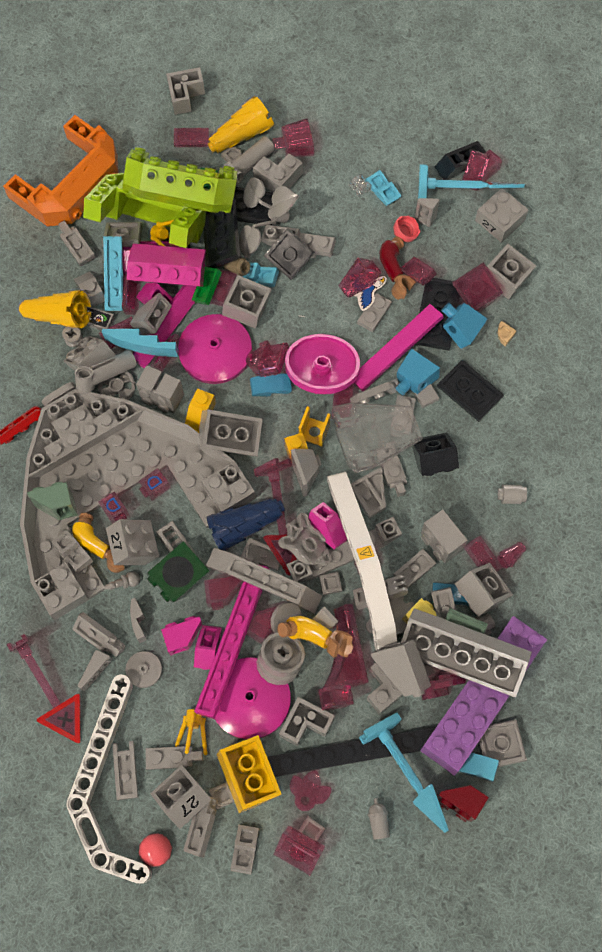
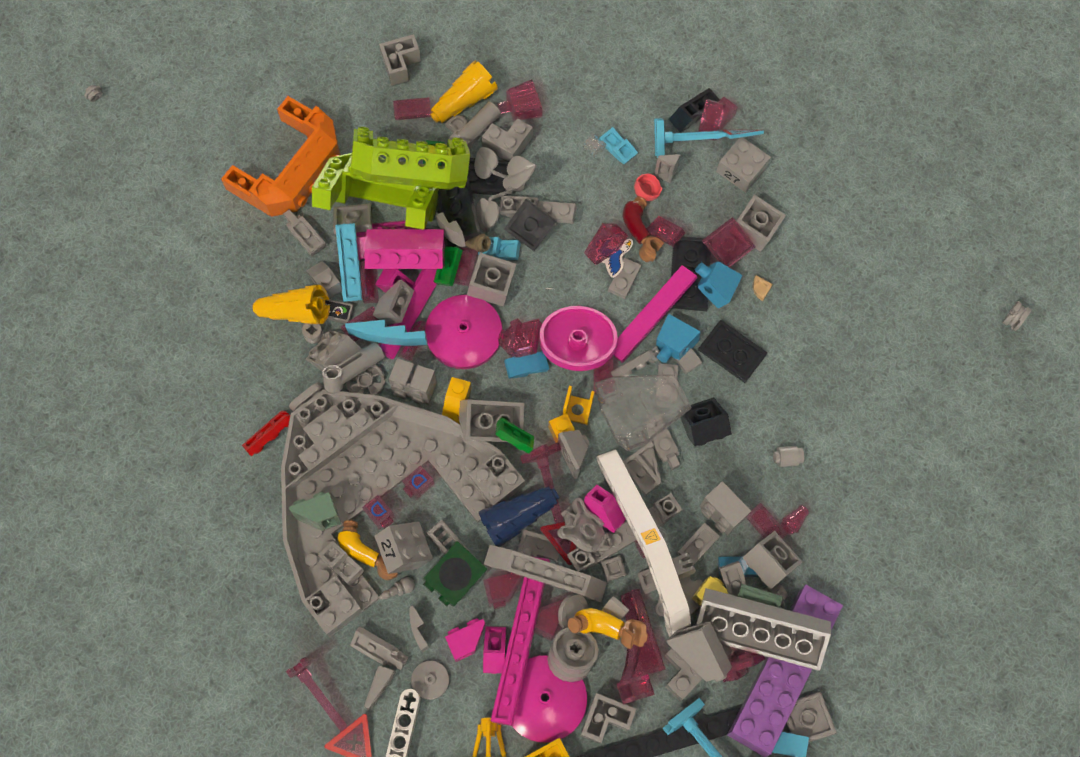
camera: 10 degrees left, 0 degrees up
(160, 233) = (391, 213): yellow plant -> none
(213, 251) = (451, 230): none -> light grey slope
(249, 448) = (514, 435): none -> green plate

